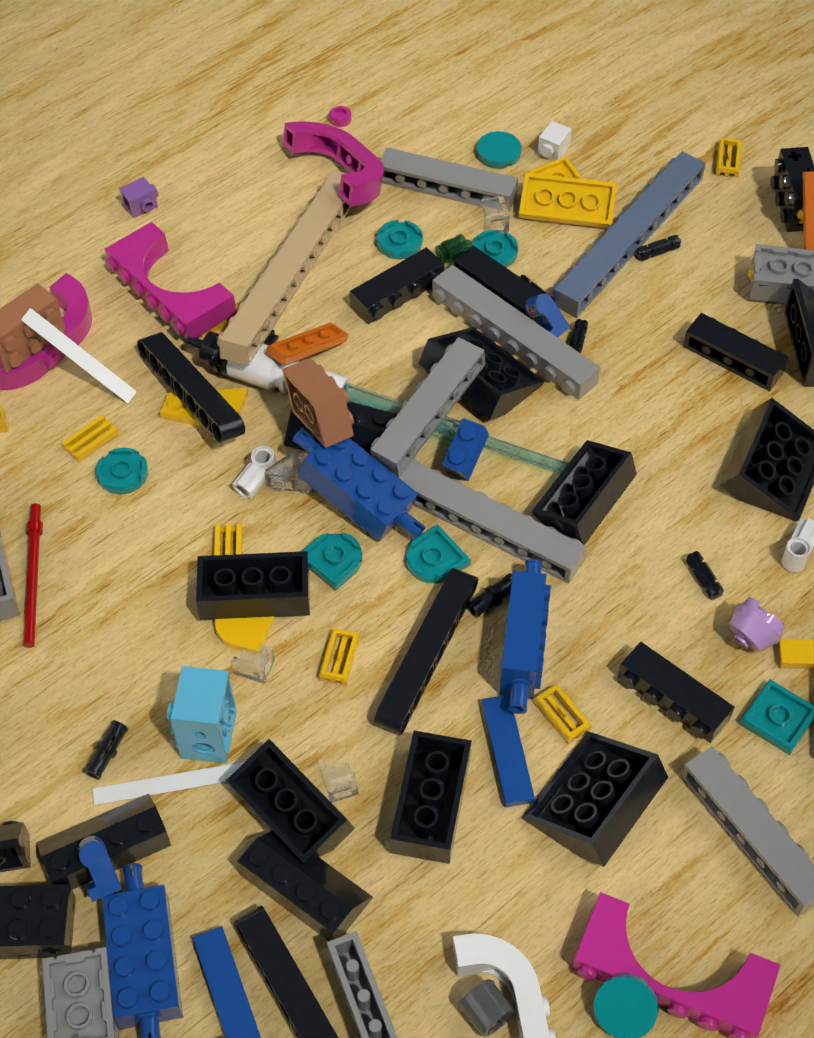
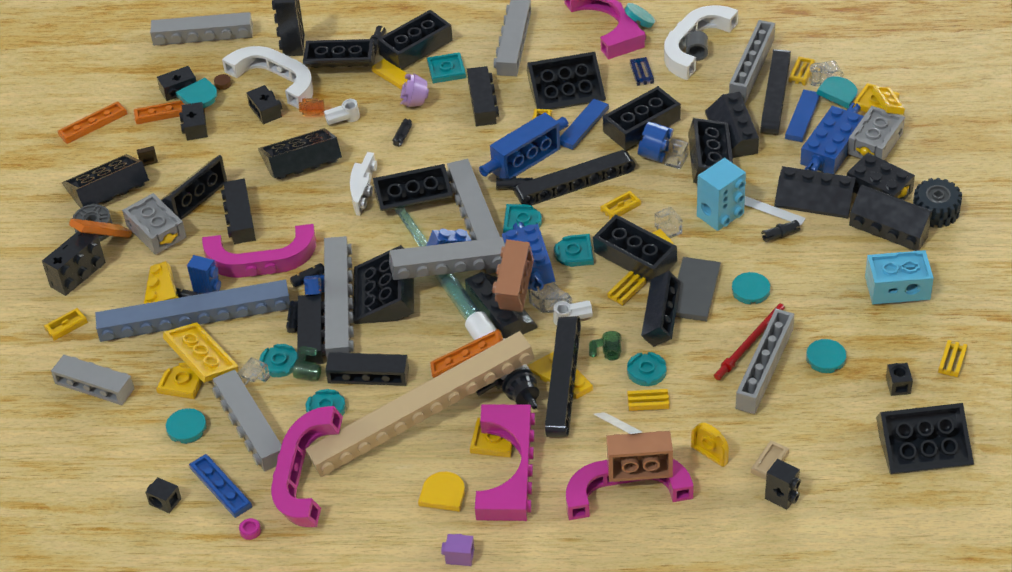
camera: 135 degrees left, 10 degrees down
(83, 644) = (750, 288): none -> teal tile
(95, 857) = (829, 164): blue leg -> none
(149, 600) = (697, 288): none -> dark grey tile
(157, 533) = (661, 309): none -> black brick
(180, 465) = (611, 345): none -> clear green piece
(206, 237) = (443, 491): none -> yellow tile
(372, 762) = (655, 141): none -> blue brick
(407, 129) = (220, 485): none -> blue tile
(439, 88) = (163, 495): none -> black brick
(539, 932) = (643, 79): none -> clear blue tile
(554, 141) = (150, 400): white brick -> none
(627, 125) = (92, 379): none -> light grey brick
(657, 464) = (360, 182): none -> white slope
(660, 254) = (203, 275): none -> blue brick
(669, 291) = (265, 261): none -> dark pink arch
(702, 237) = (160, 284): none -> yellow wing

